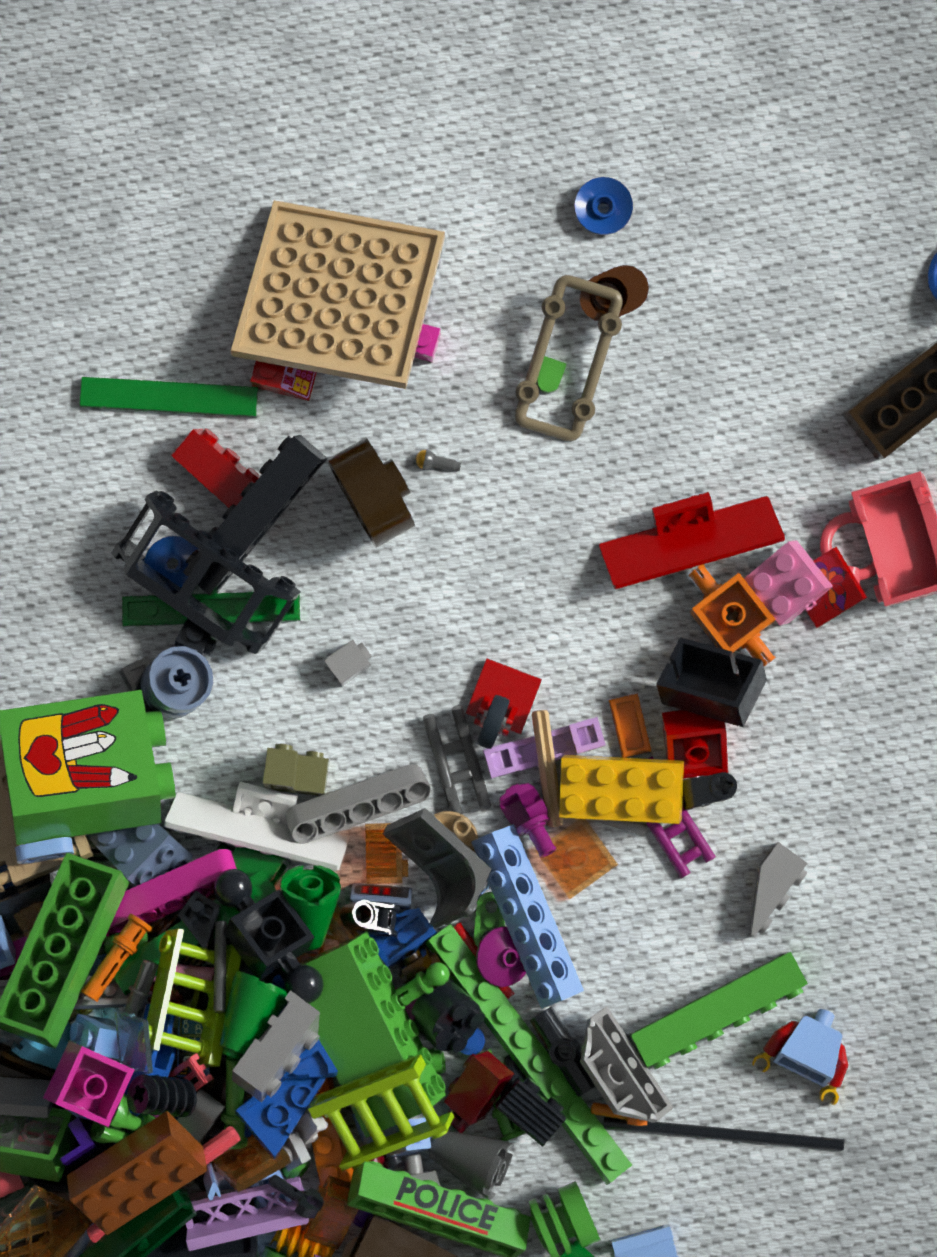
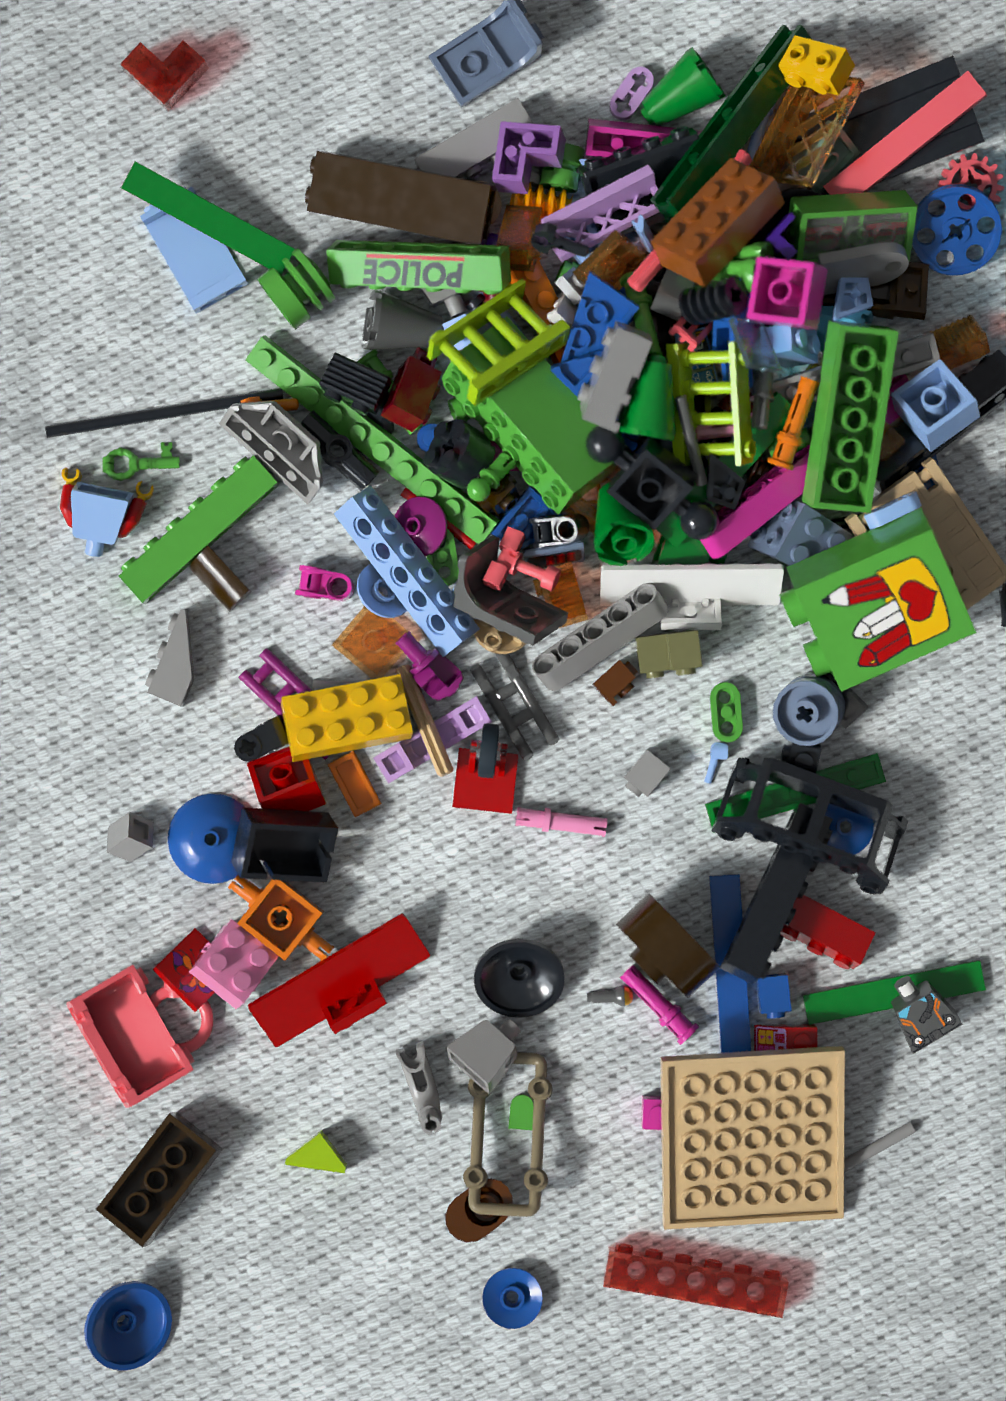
camera: 165 degrees right, 5 degrees up
(26, 1069) = (852, 297): none -> light blue piece
(146, 369) = (923, 1013): none -> dark grey torso
(222, 258) = (878, 1146): none -> light grey bar
(255, 701) = (726, 712): none -> bright green plate
(274, 666) = (717, 751): none -> light blue hand
(282, 421) = (774, 995): none -> blue brick
(323, 435) = (731, 990): none -> blue tile
(353, 758) = (616, 681): none -> reddish brown brick
(364, 140) = (769, 1302): none -> clear red brick
(386, 430) = (668, 1014): none -> dark pink pin
(424, 898) = (511, 561): none -> coral bar
(452, 642) = (560, 821): none -> bright pink pin
(521, 489) = (523, 990): none -> black dish
(569, 438) = (485, 1052): none -> light grey torso
(569, 909) = (368, 588): none -> light blue dish
(612, 925) = (322, 584): none -> dark pink piece
(638, 420) = (422, 1088): none -> light grey piece
(710, 956) = (219, 578): none -> dark brown brick
(753, 385) = (317, 1154): none -> lime slope
(763, 1090) = (166, 461): none -> bright green piece
(798, 724) = (188, 834): none -> blue dish
(857, 730) = (130, 837): none -> light grey panel

